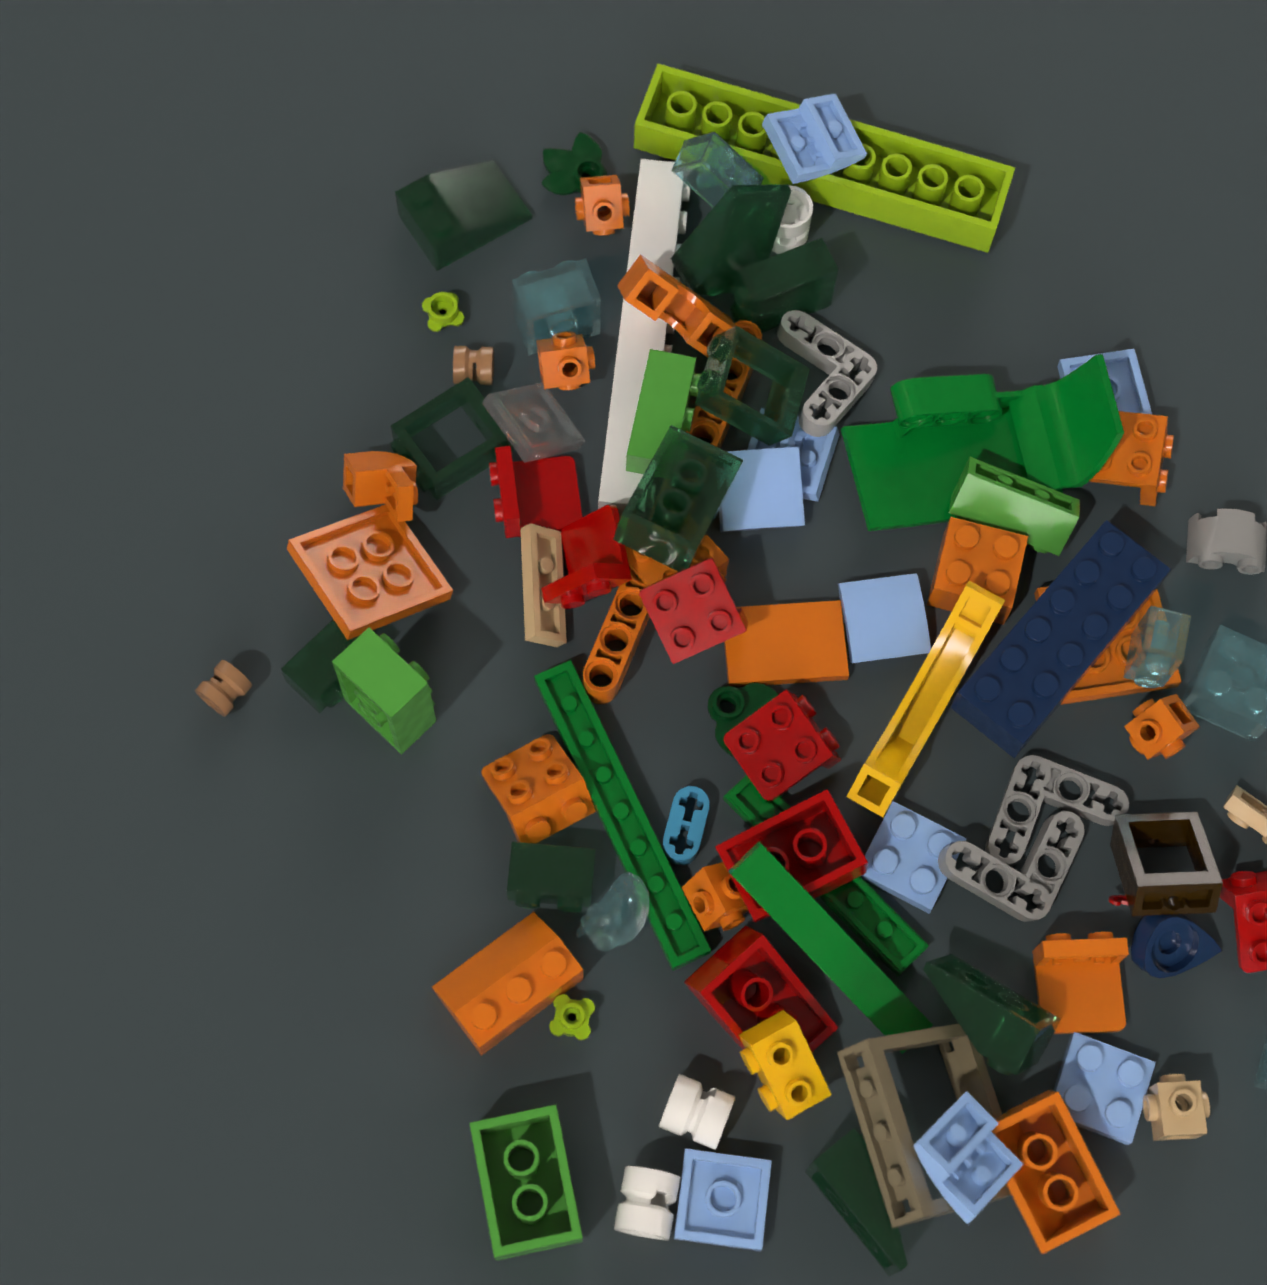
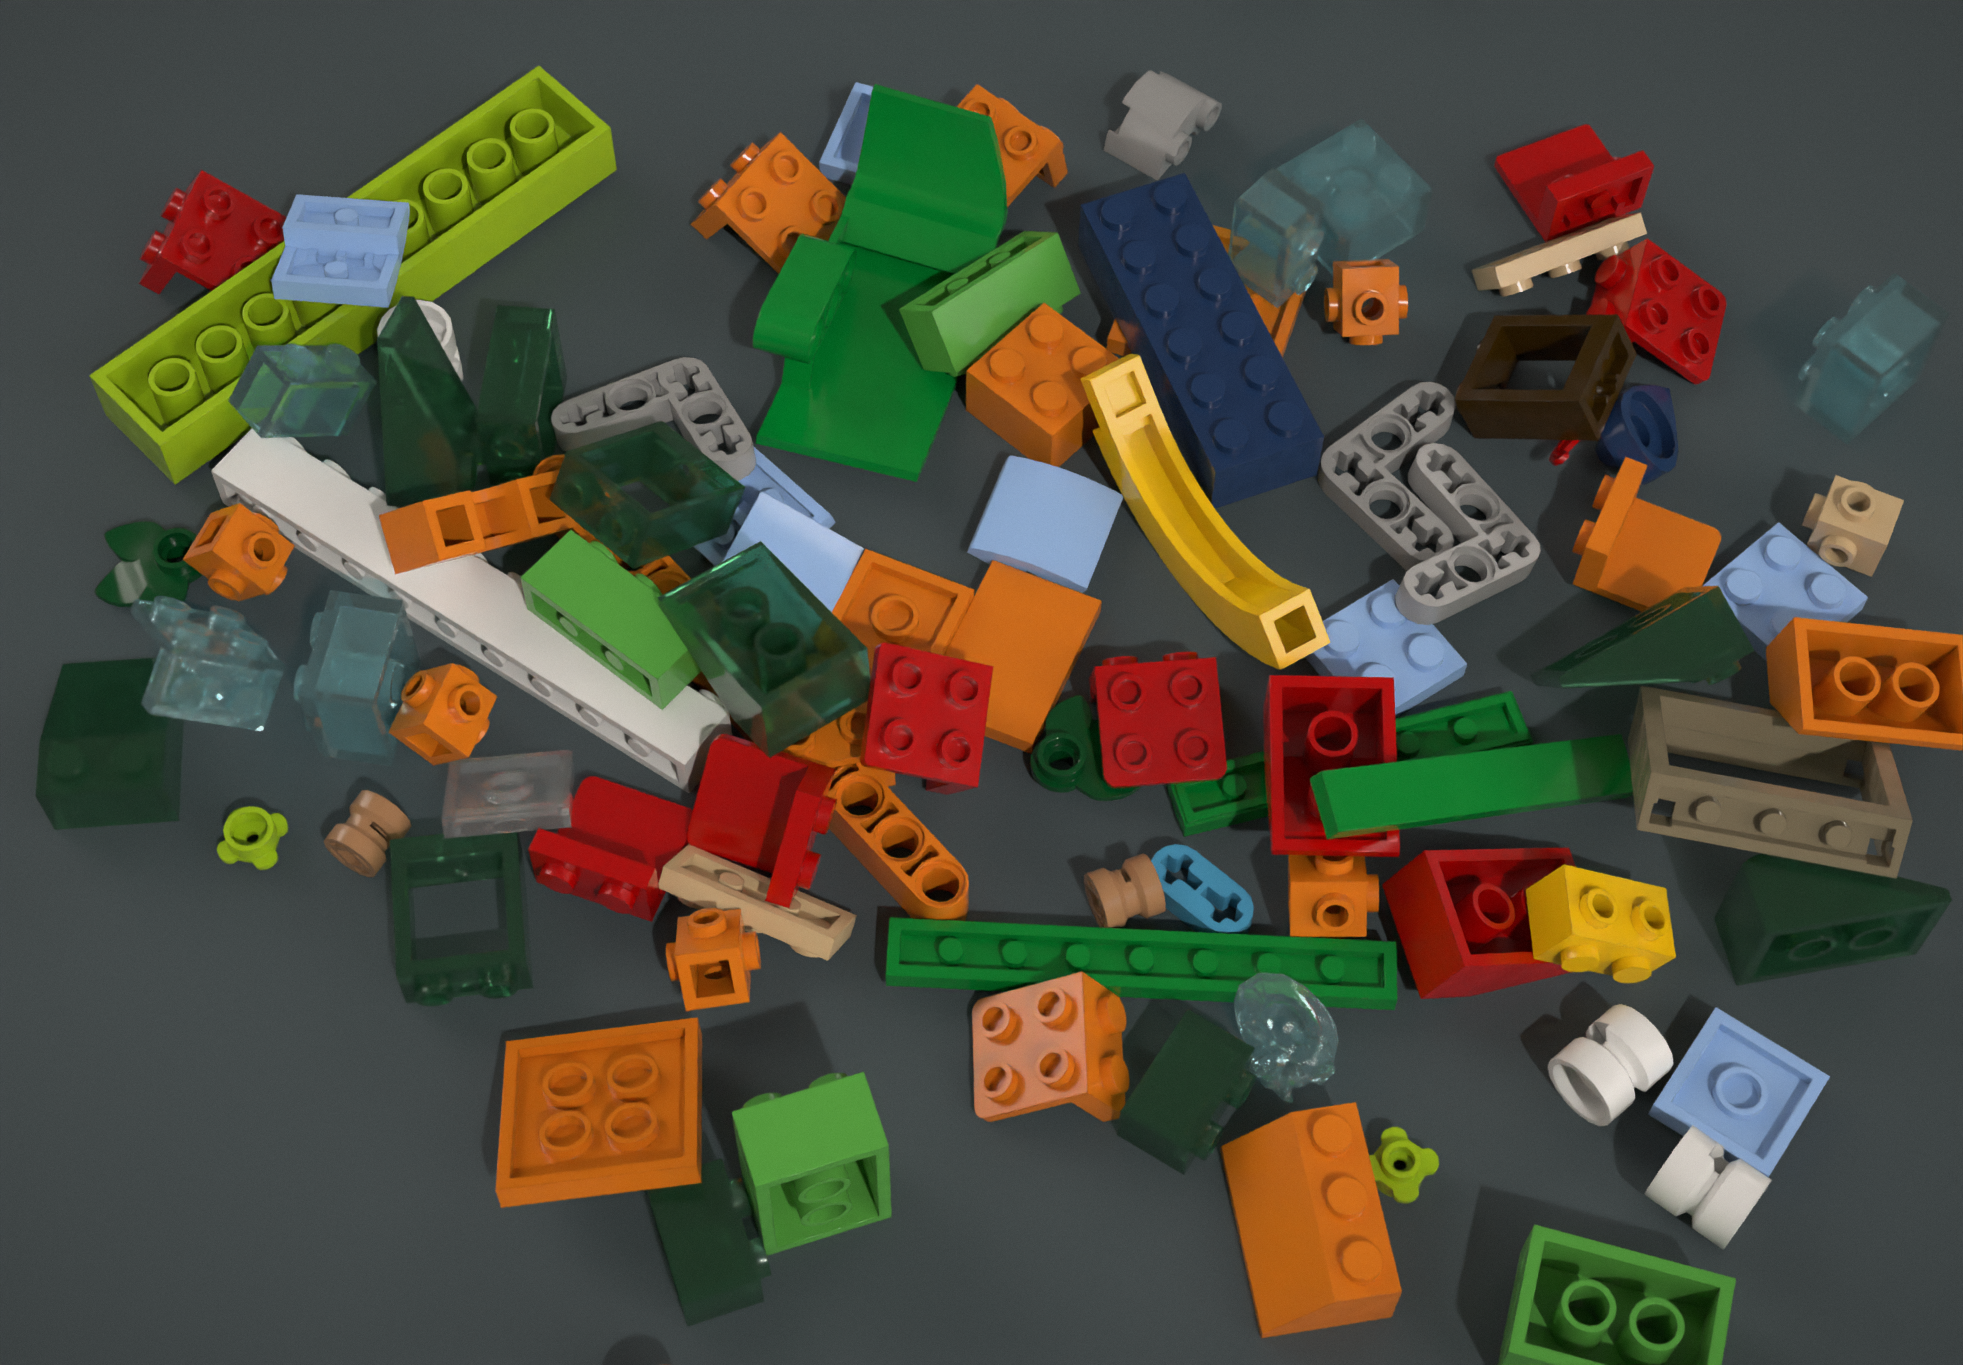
camera: 60 degrees left, 10 degrees down
(381, 479) = (470, 1027): orange brick -> none
(491, 580) = (713, 958): none -> orange brick
(523, 225) = (208, 665): none -> clear light blue bracket
(658, 780) = (1125, 892): none -> medium nougat wheel
(767, 566) = (901, 605): none -> orange plate
(797, 69) = (209, 235): none -> red bracket
(966, 1157) = (1846, 747): light blue slope -> none
(1014, 349) = (772, 201): none -> orange bracket

